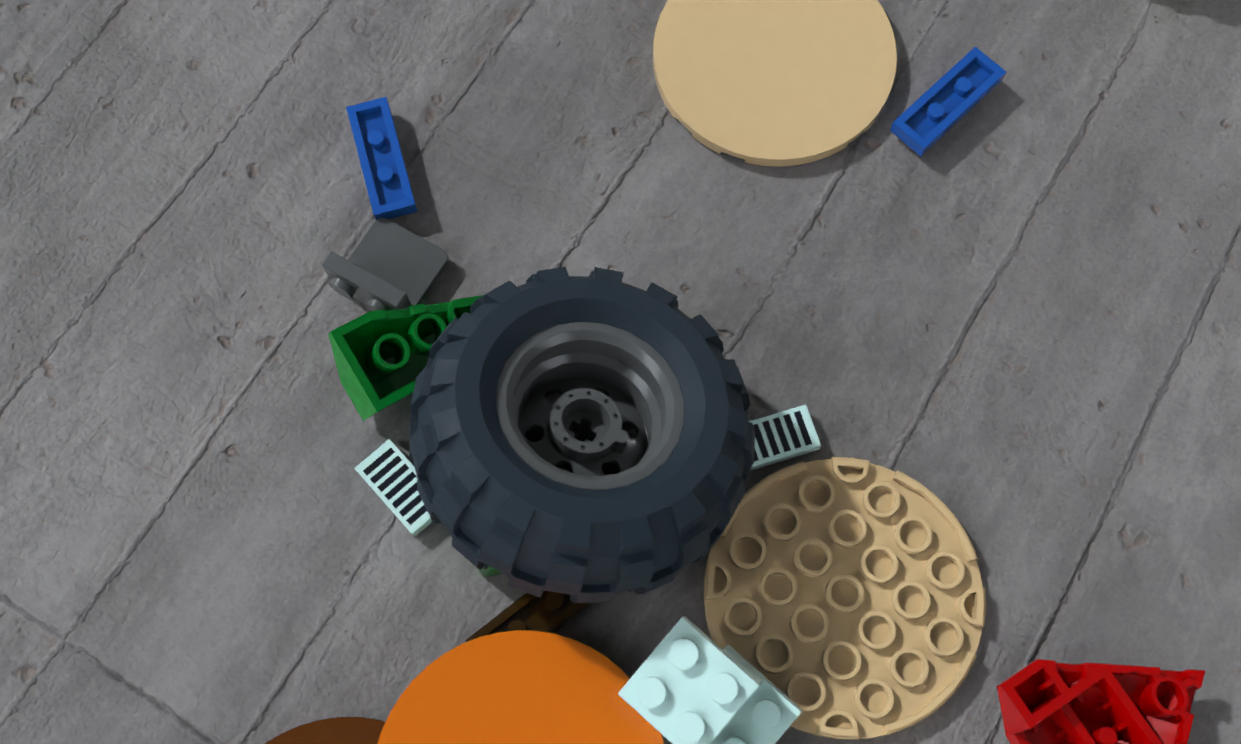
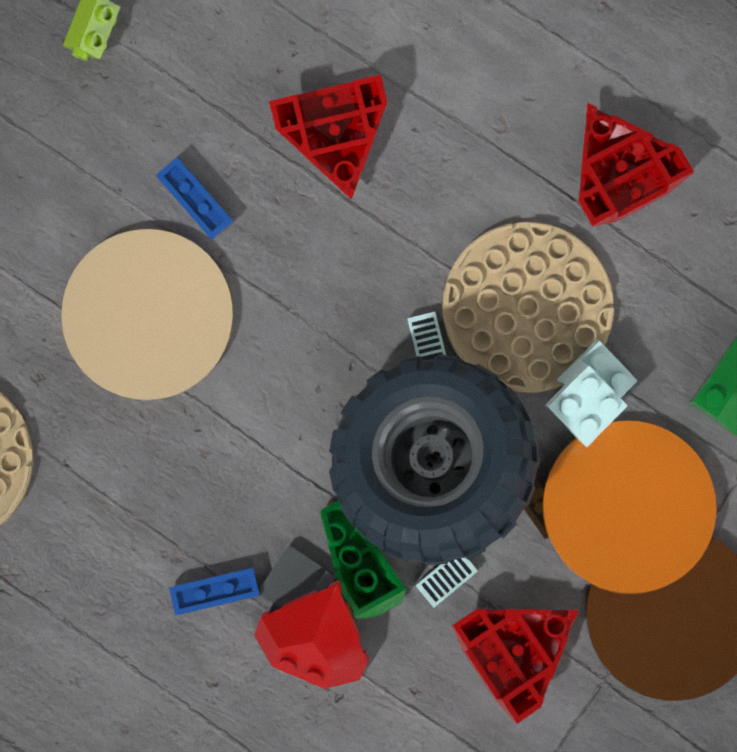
camera: 80 degrees left, 15 degrees up
(274, 598) = (515, 653): none -> red wedge
(298, 289) = (314, 639): none -> red wedge
(1090, 272) = (334, 127): none -> red wedge

